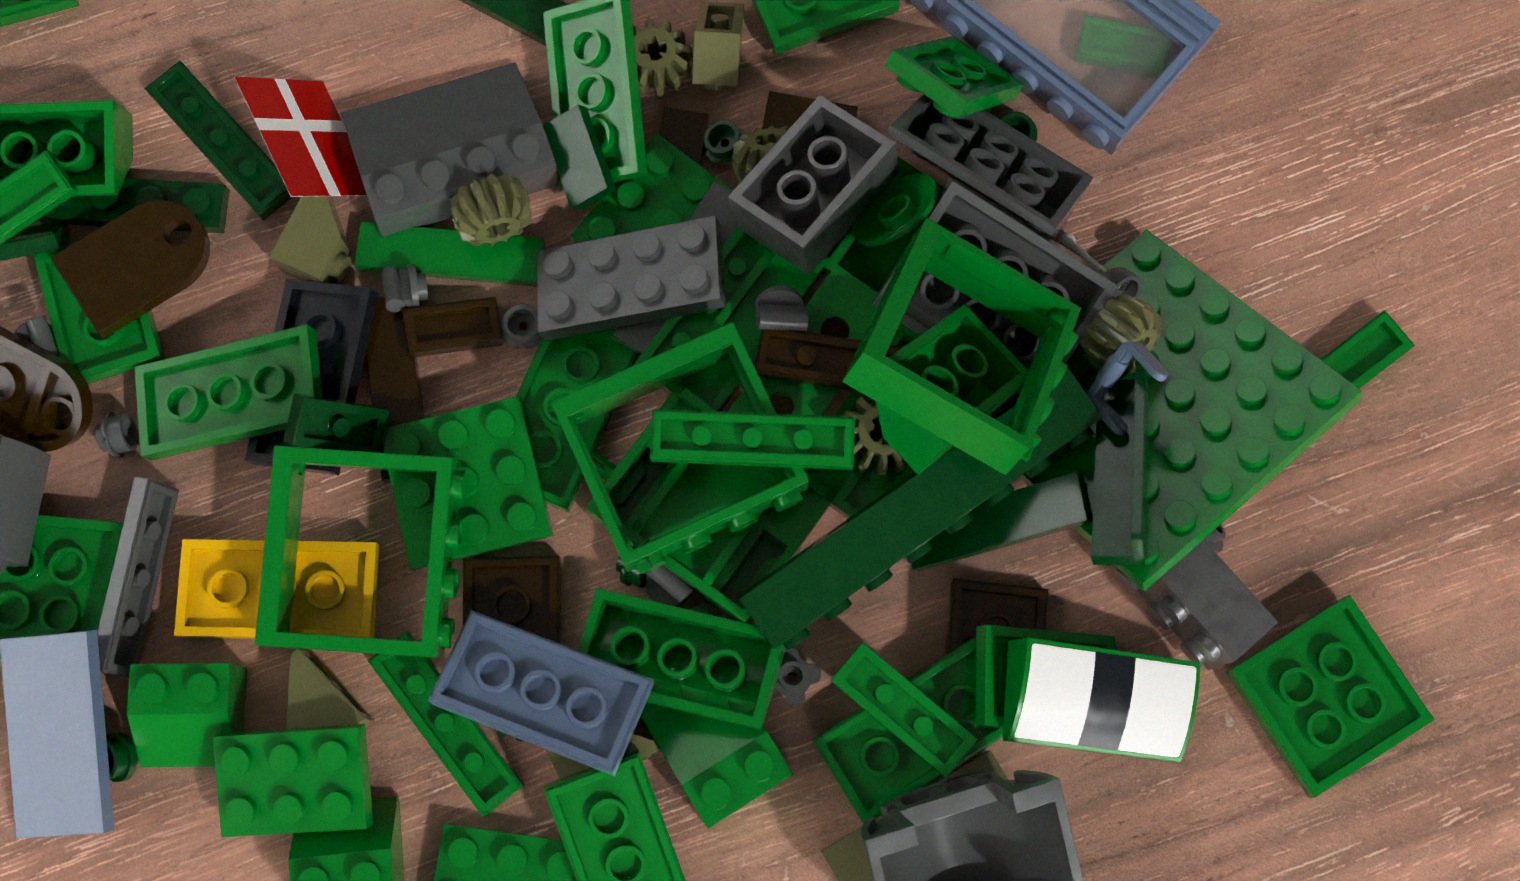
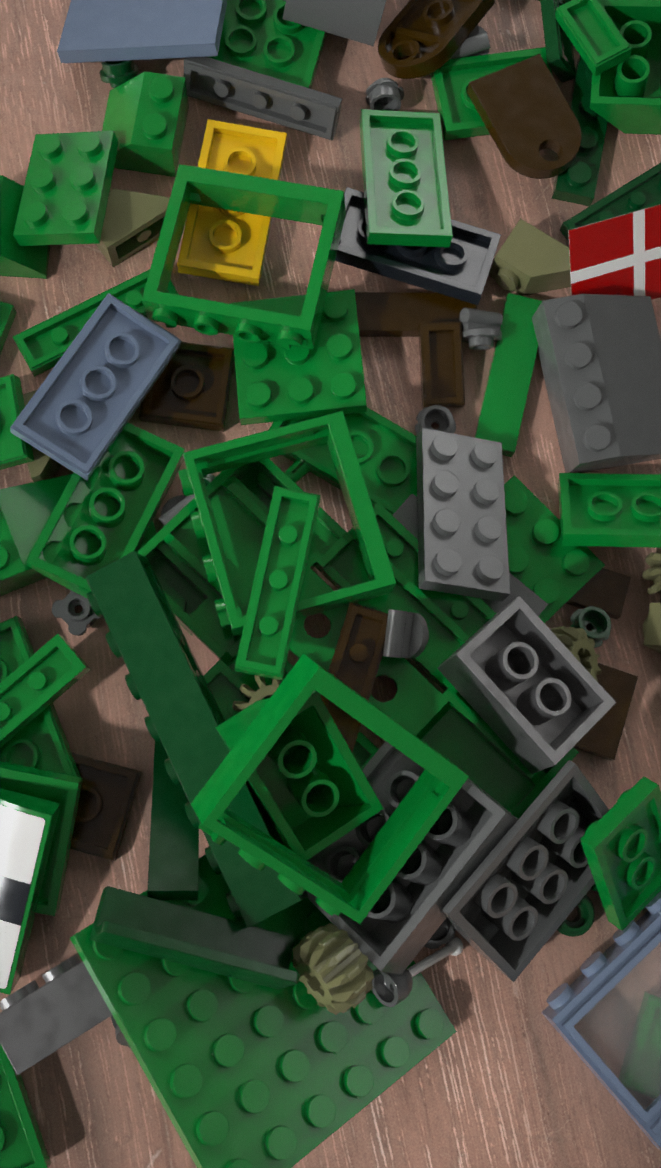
camera: 90 degrees right, 0 degrees up
(335, 424) = (357, 246): dark green plate -> none
(491, 210) = (541, 401): olive gear -> none
(579, 157) = (585, 486): tile -> none
(897, 210) = (489, 761): green dish -> none
(1111, 373) = (289, 943): sand blue piece -> none

